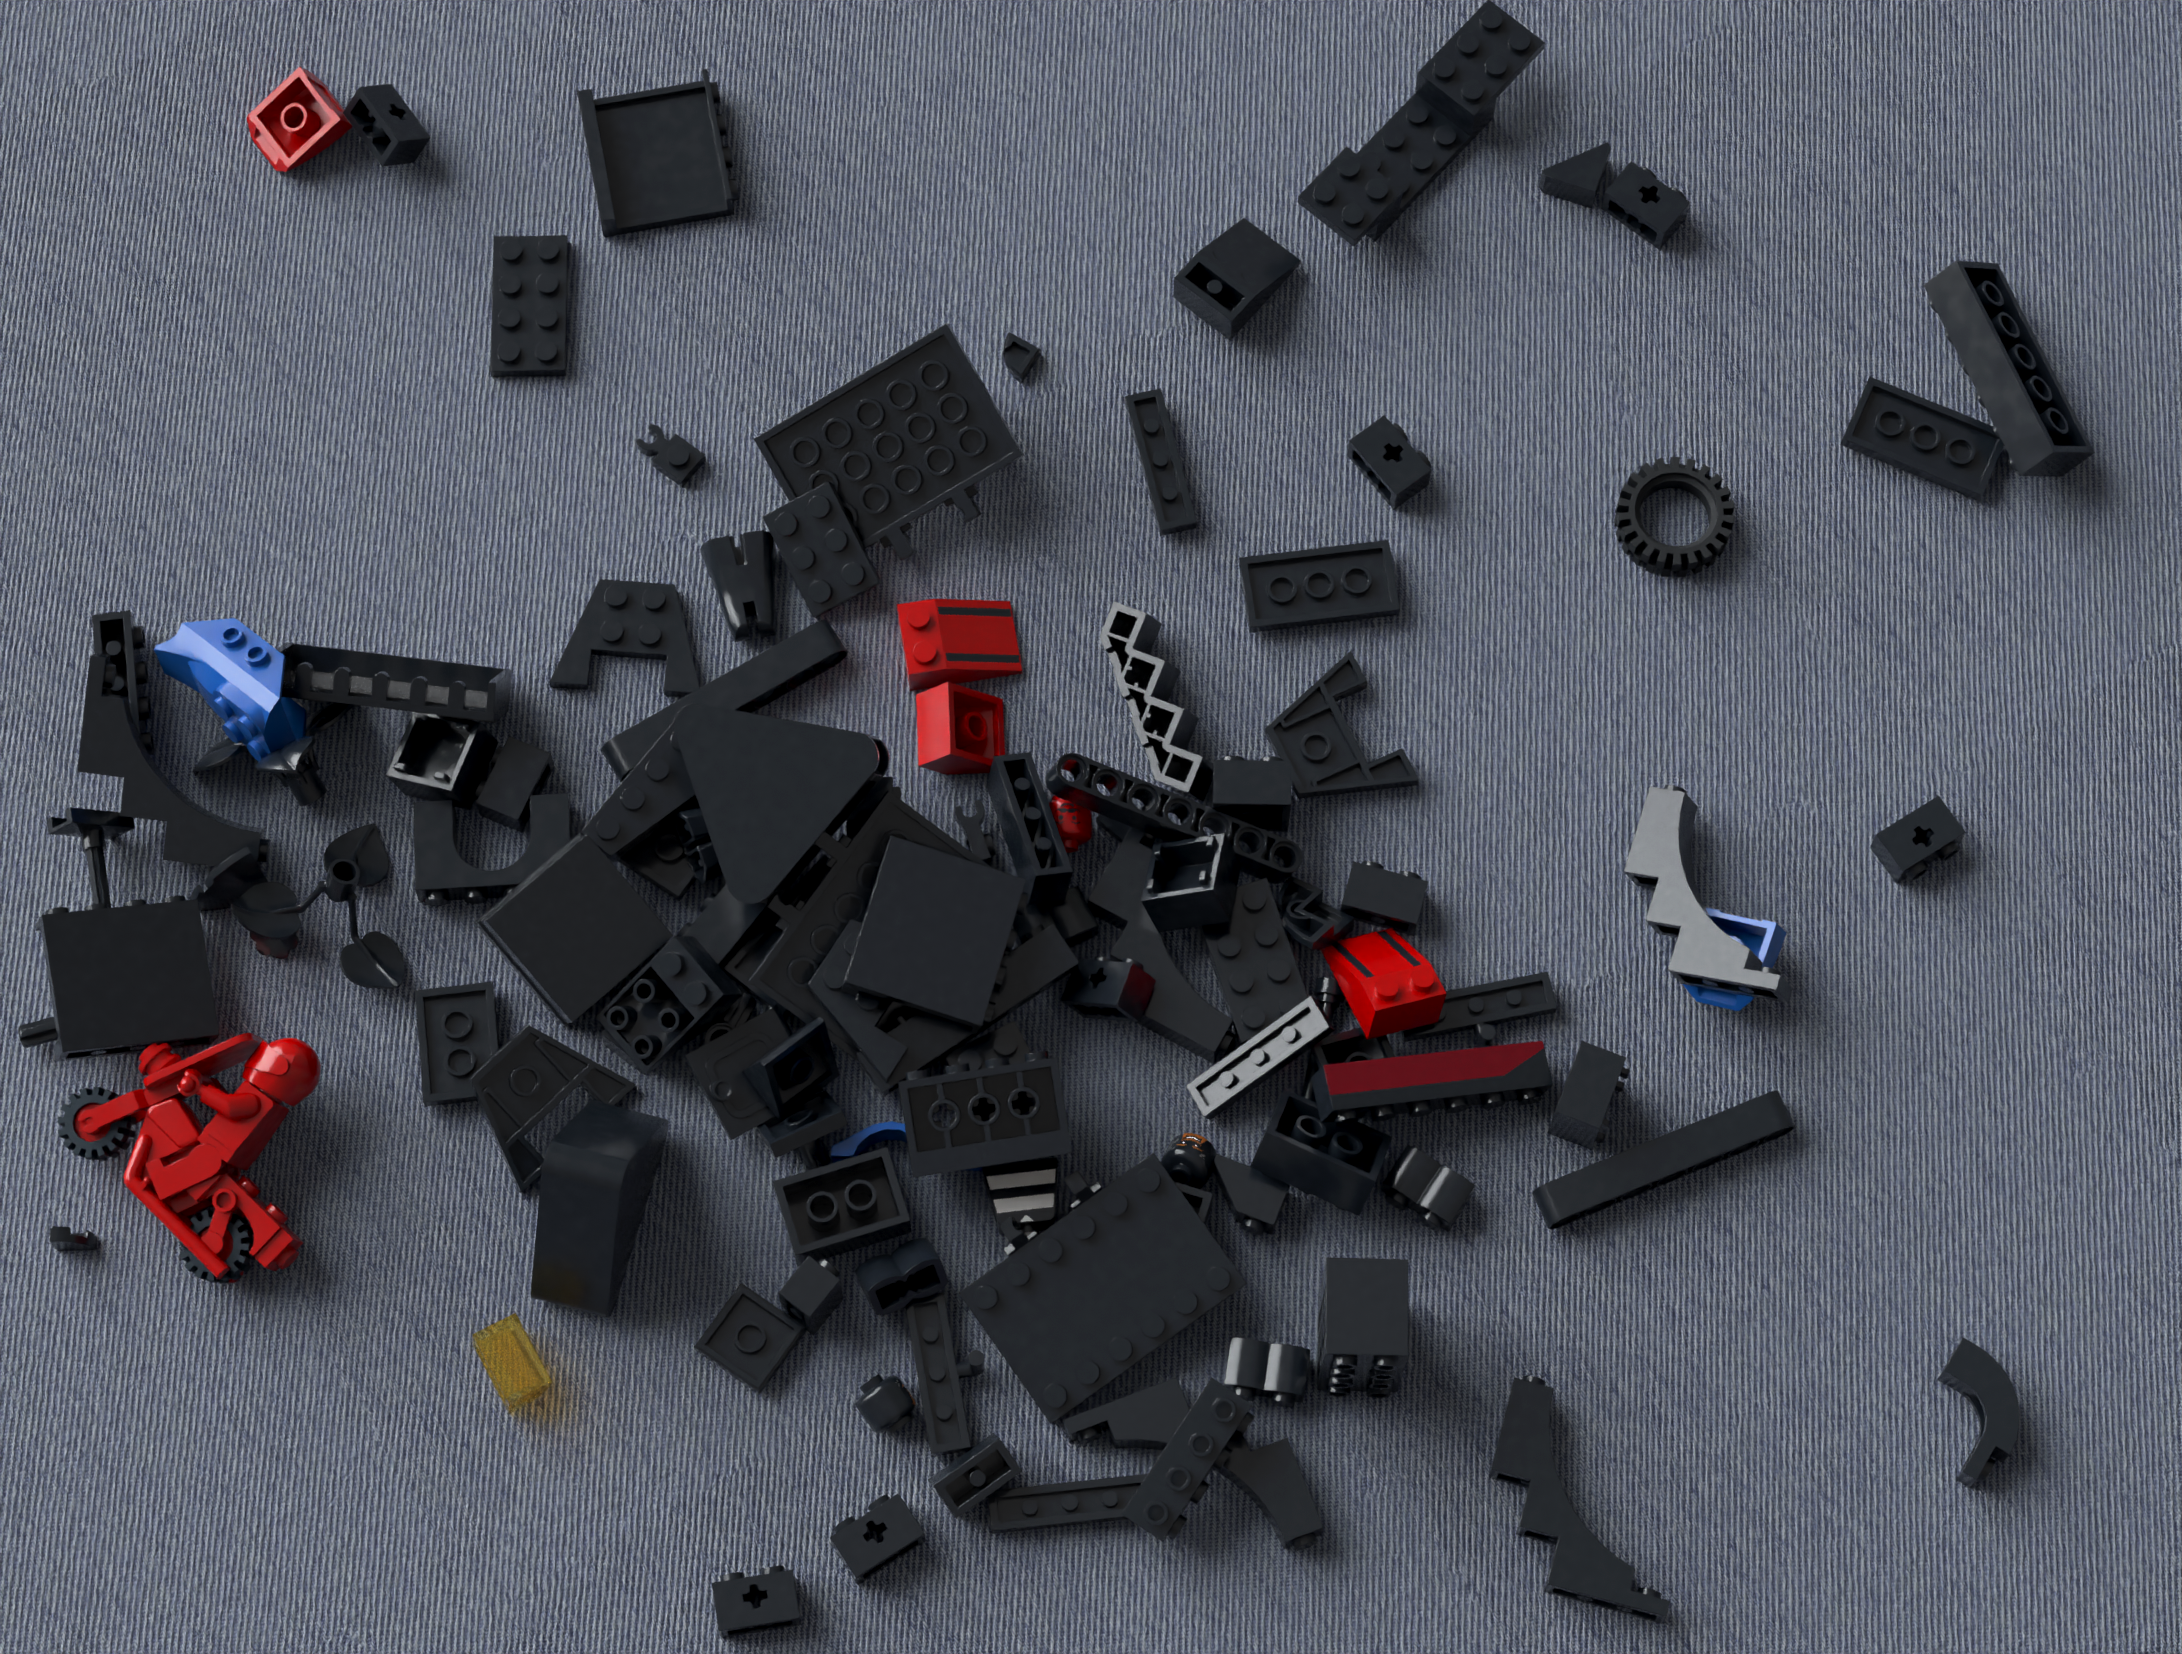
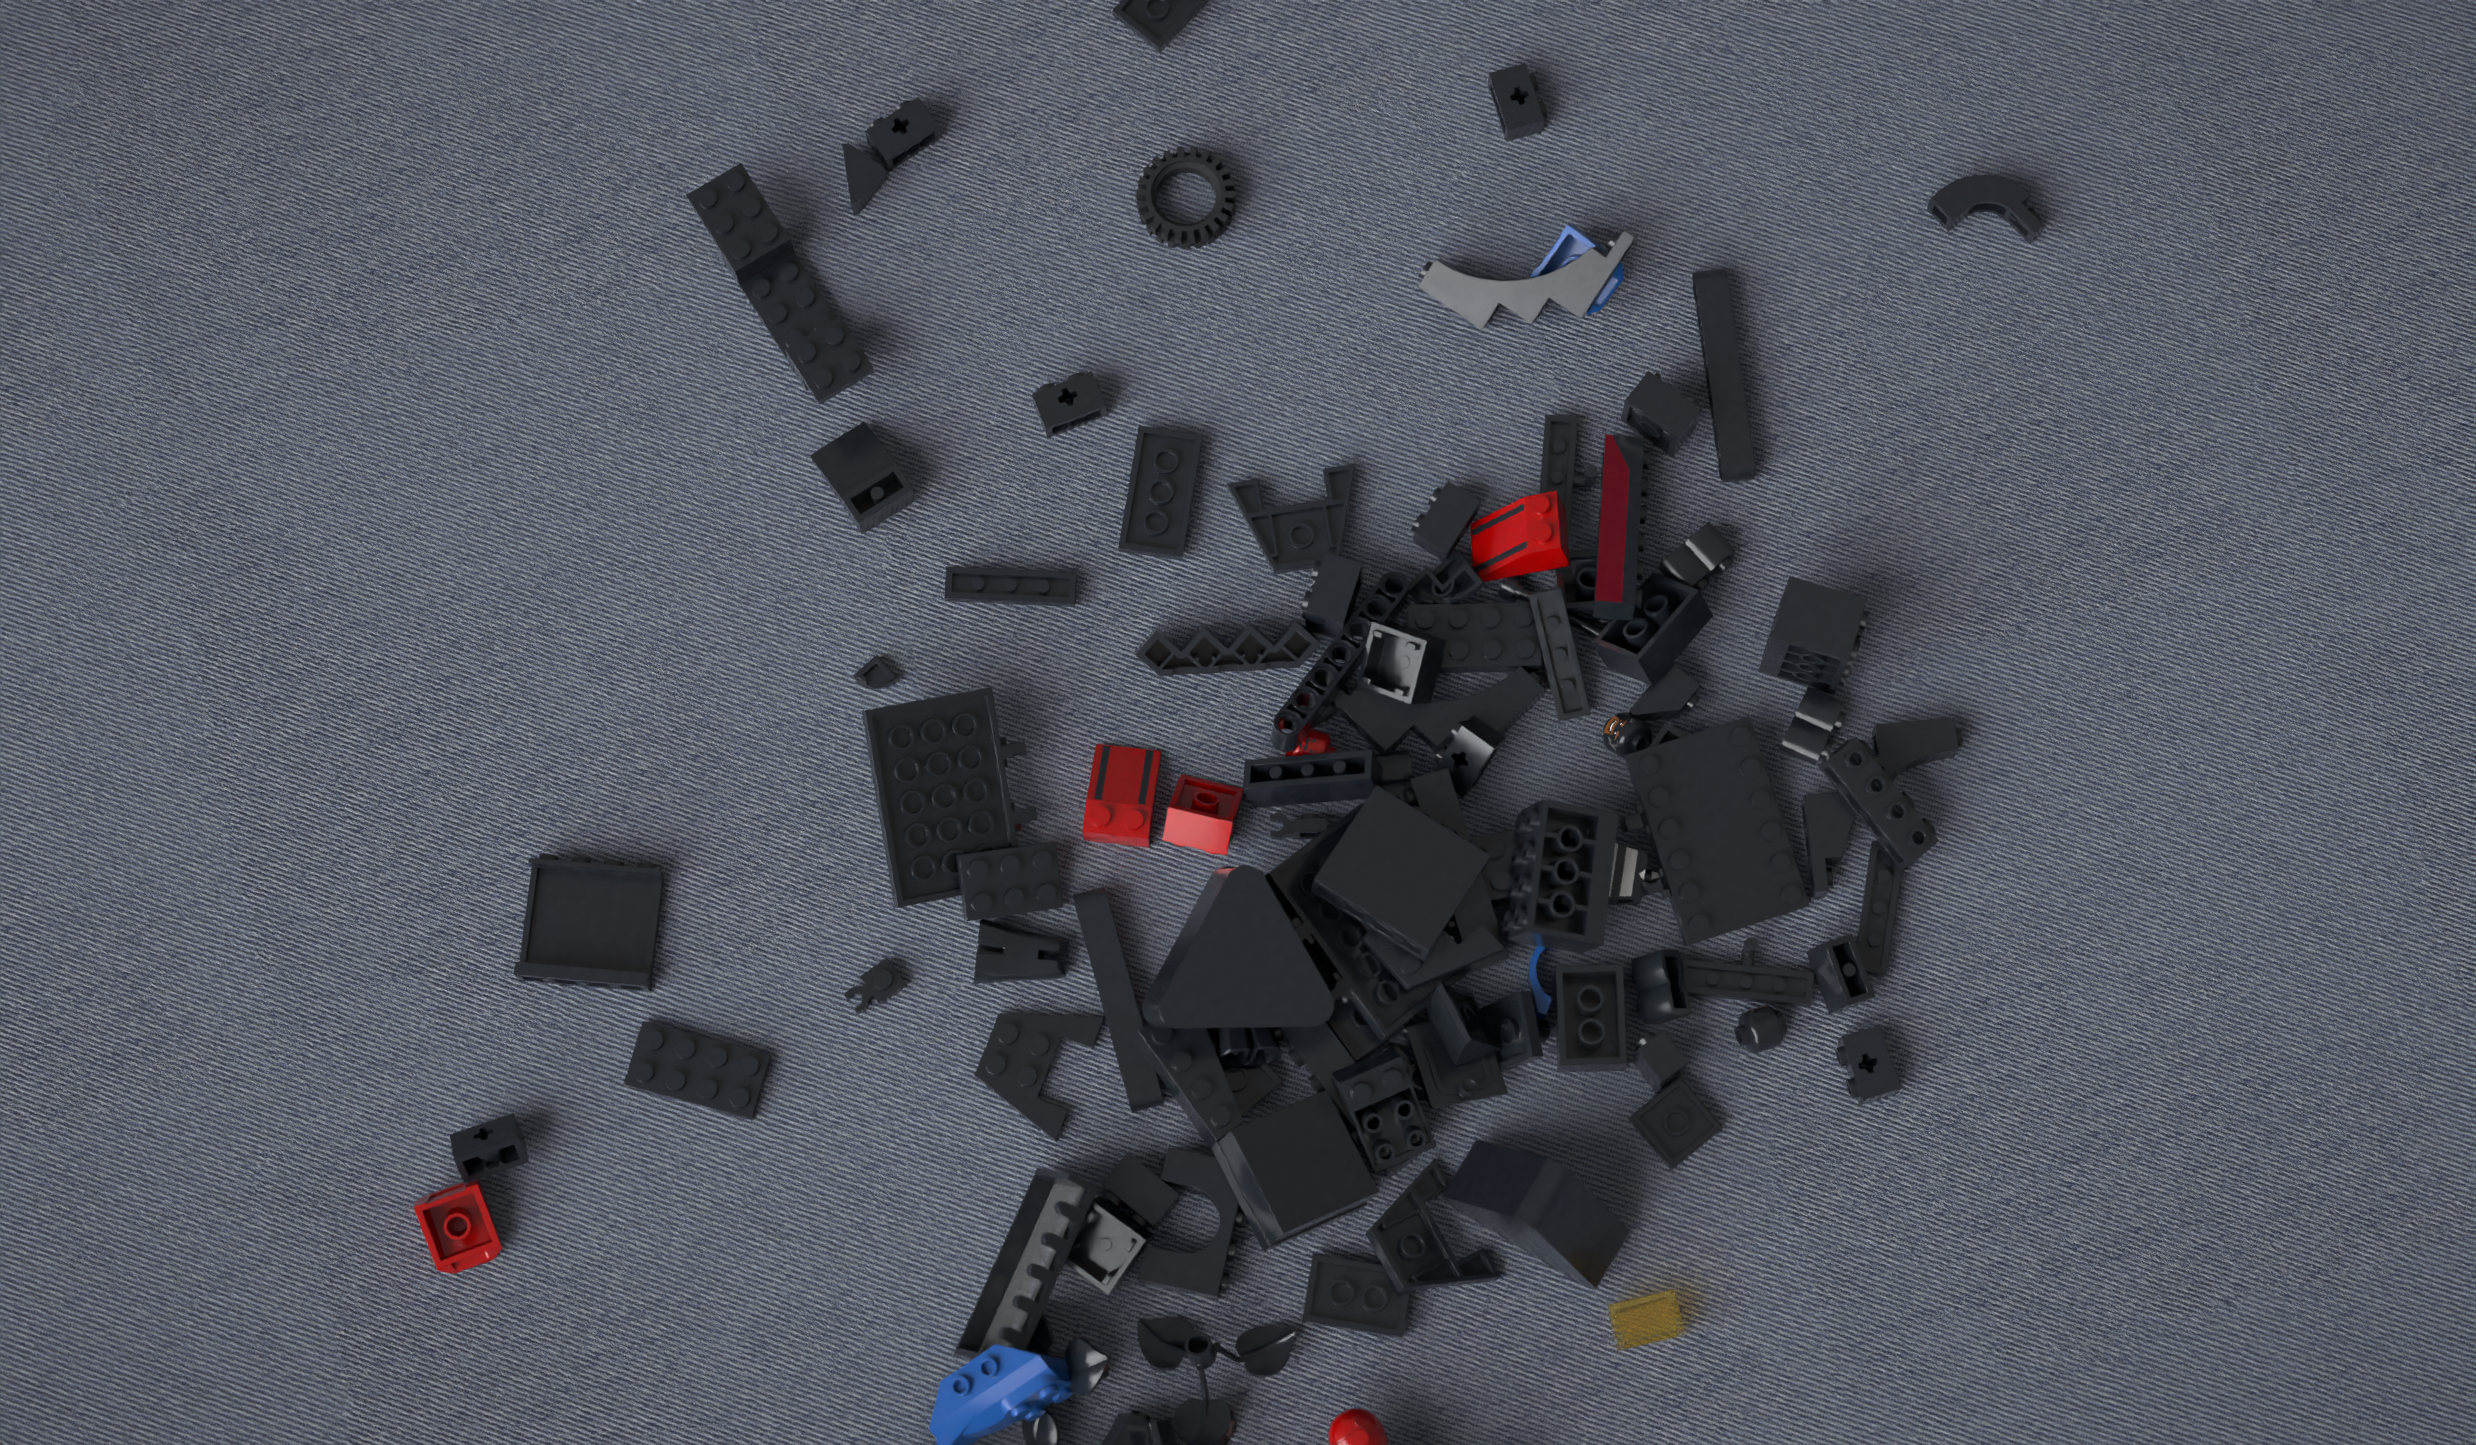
camera: 70 degrees left, 5 degrees up
(776, 1612) = (1902, 1193): black brick -> none
(1579, 1563) = (2023, 538): black arch -> none

